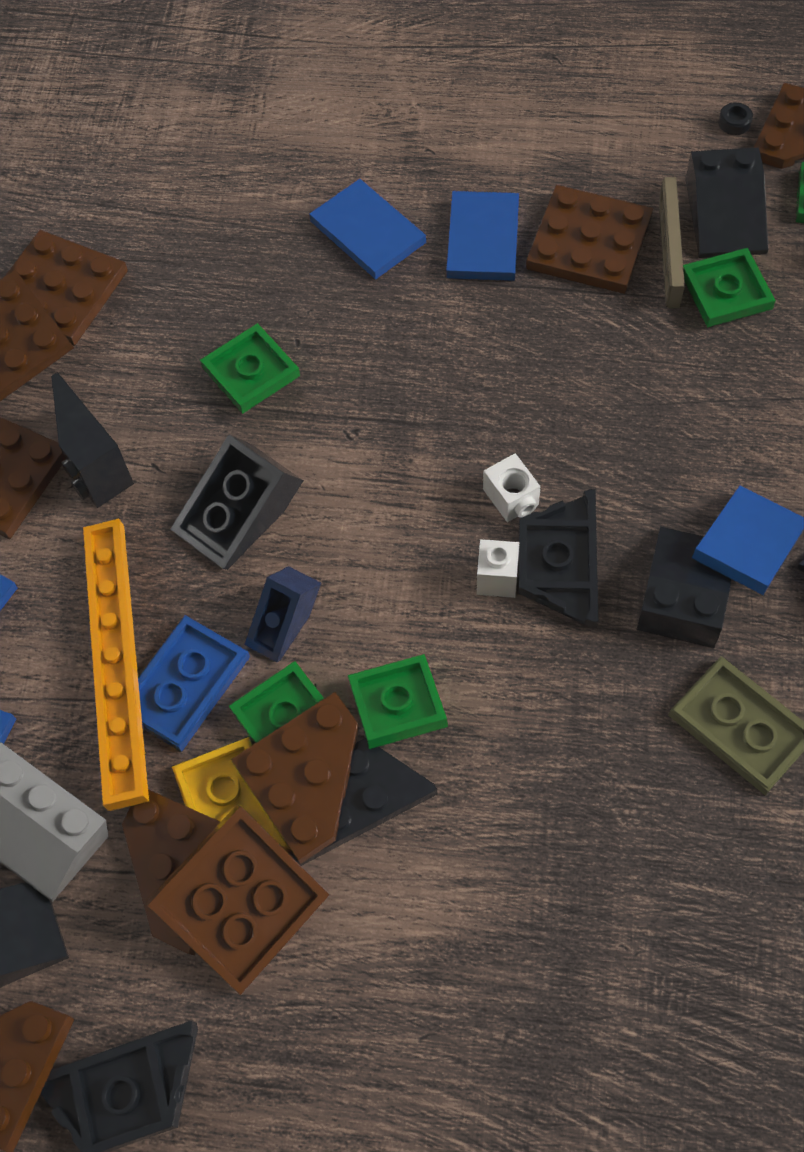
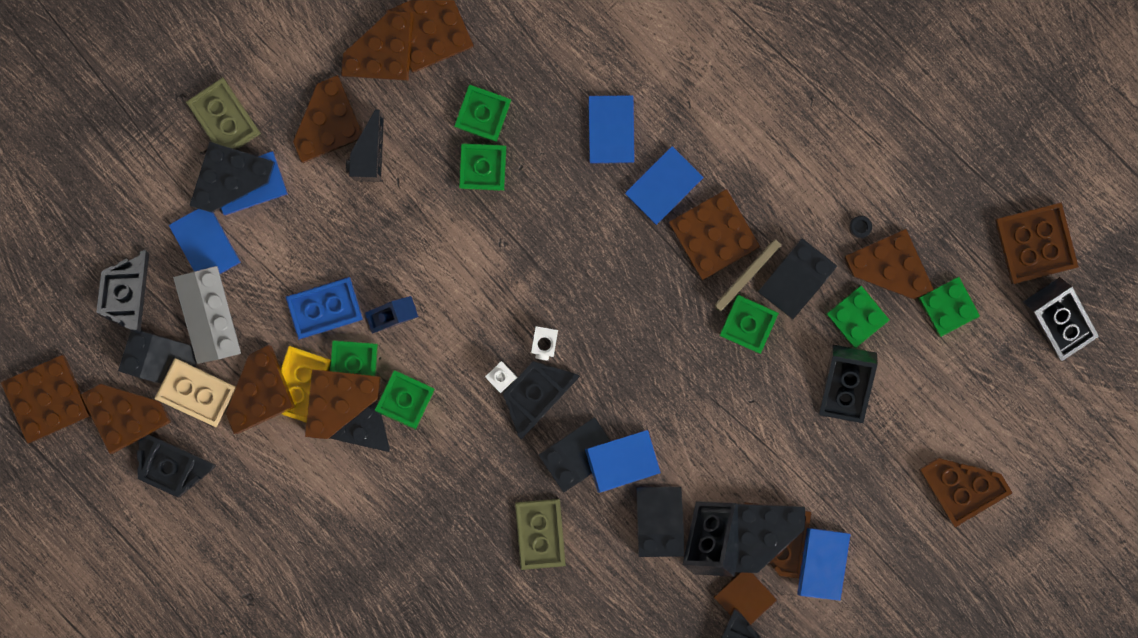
camera: 35 degrees right, 25 degrees up
(79, 942) = (195, 392): none -> tan tile
(115, 667) = (301, 275): light orange plate -> none
(198, 316) = (482, 113): none -> green plate
(235, 502) = (416, 239): black slope -> none
(237, 899) = (268, 431): reddish brown plate -> none

